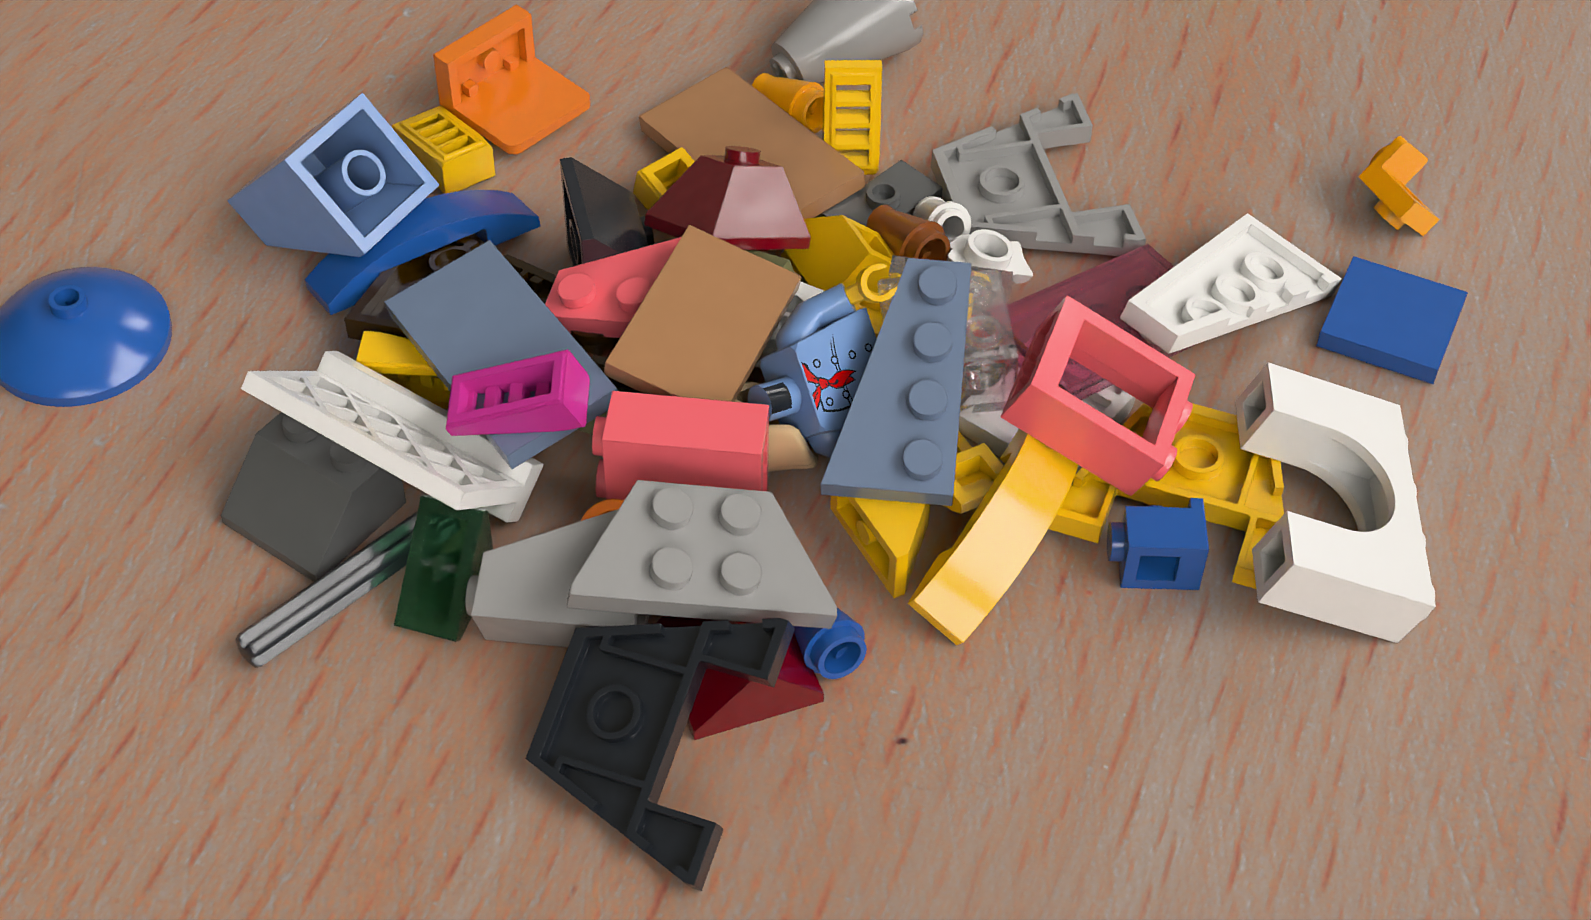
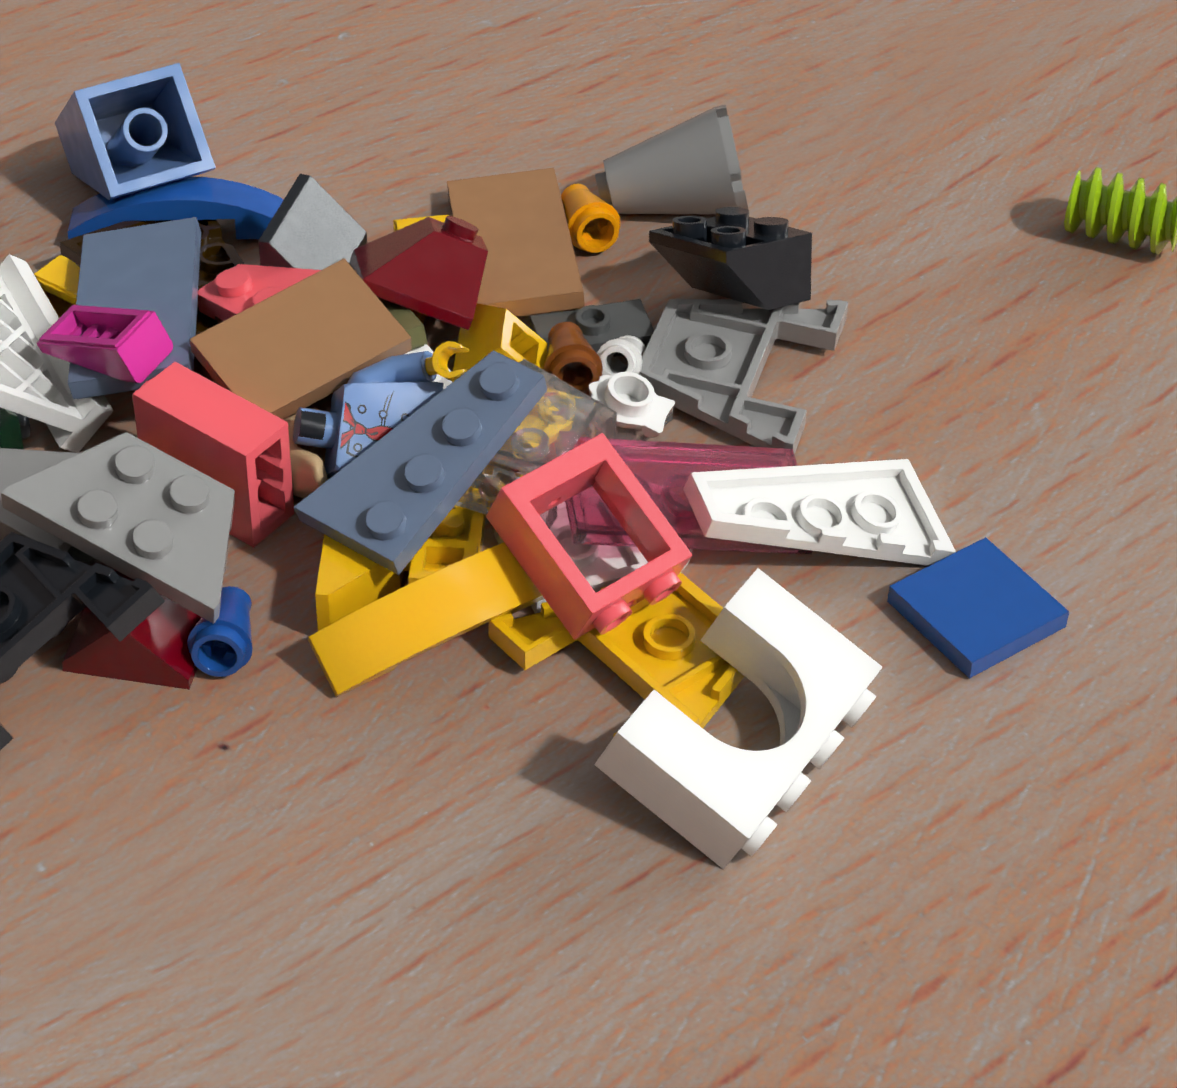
camera: 30 degrees right, 5 degrees down
(447, 148) = (269, 151): yellow slope -> none
(502, 87) = (355, 113): orange bracket -> none
(858, 146) = (600, 274): yellow slope -> none
(977, 86) = (740, 256): none -> black slope
(1160, 546) = (567, 691): blue brick -> none
(1387, 178) = (1078, 494): light orange bracket -> none

